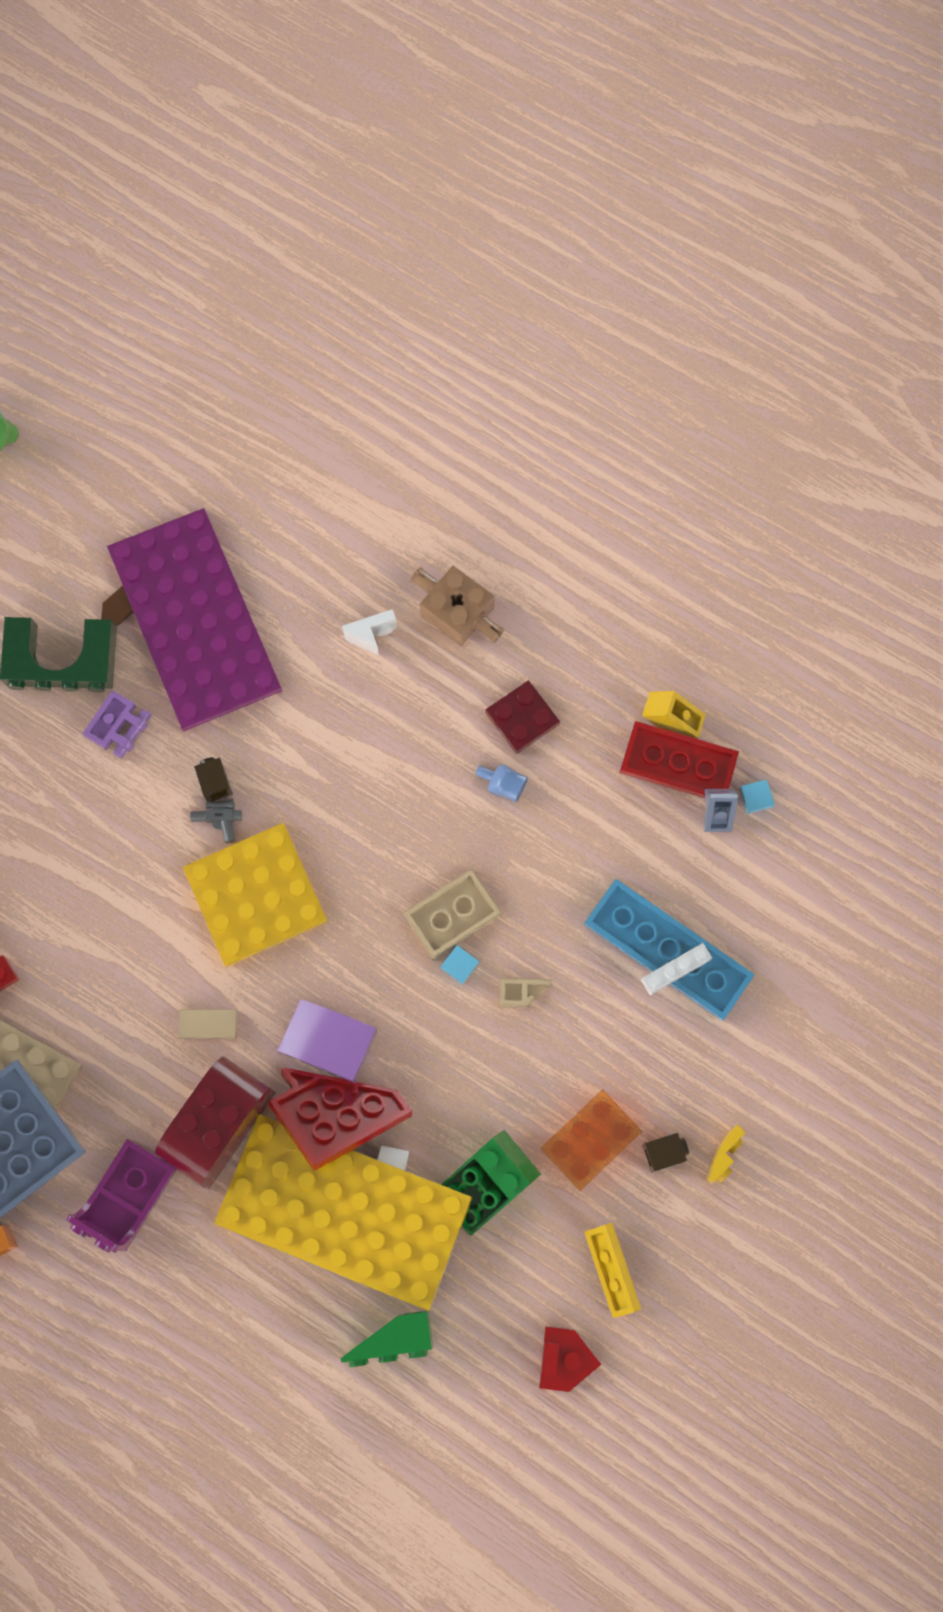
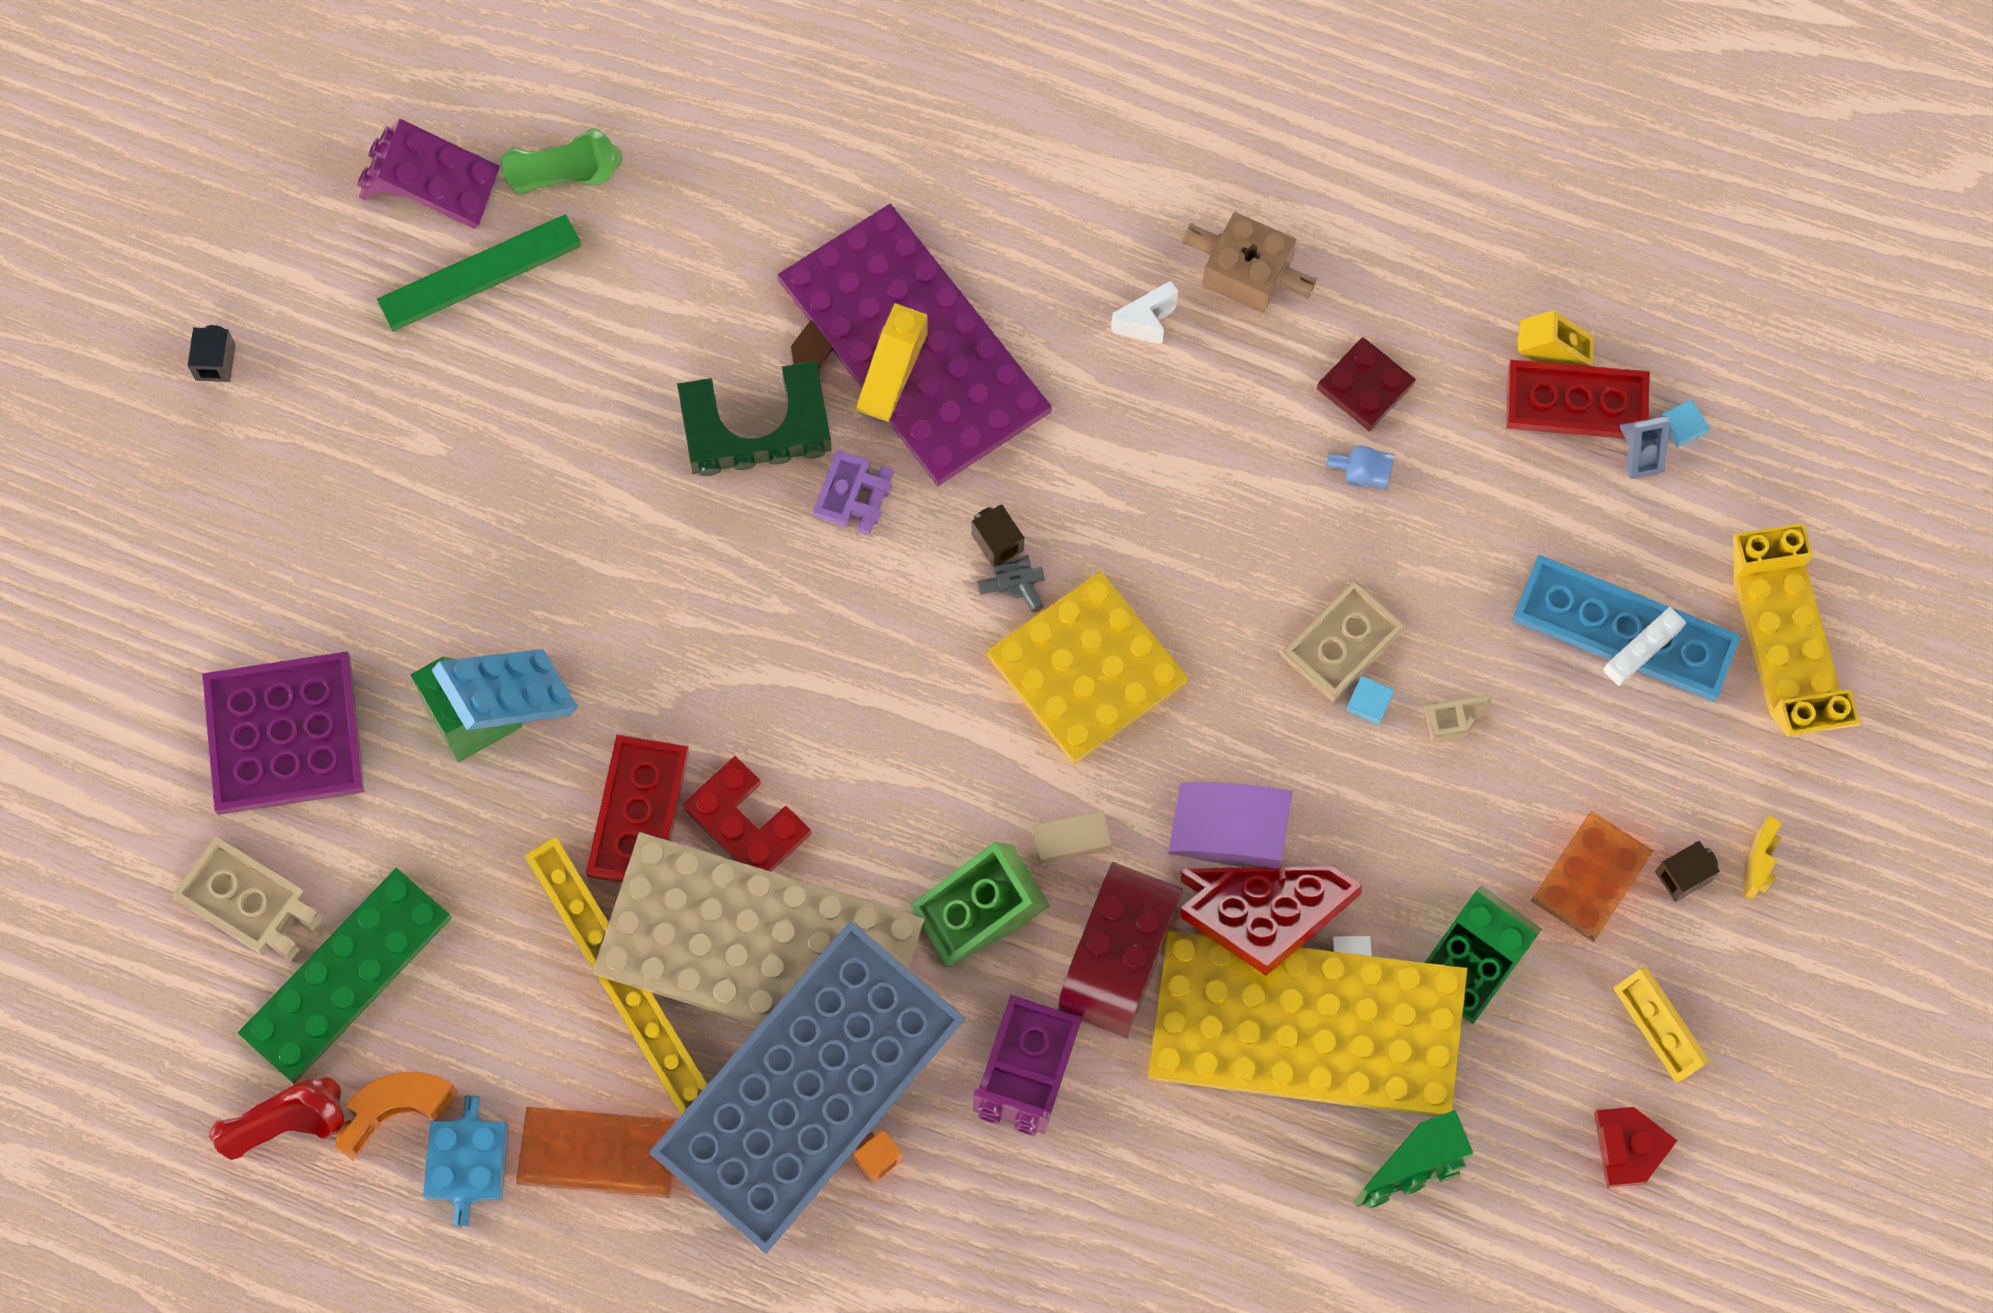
camera: 15 degrees left, 5 degrees down
(125, 1062) = (980, 903): none -> bright green slope
(168, 631) = (893, 361): none -> yellow slope
(793, 981) = (1788, 631): none -> yellow slope

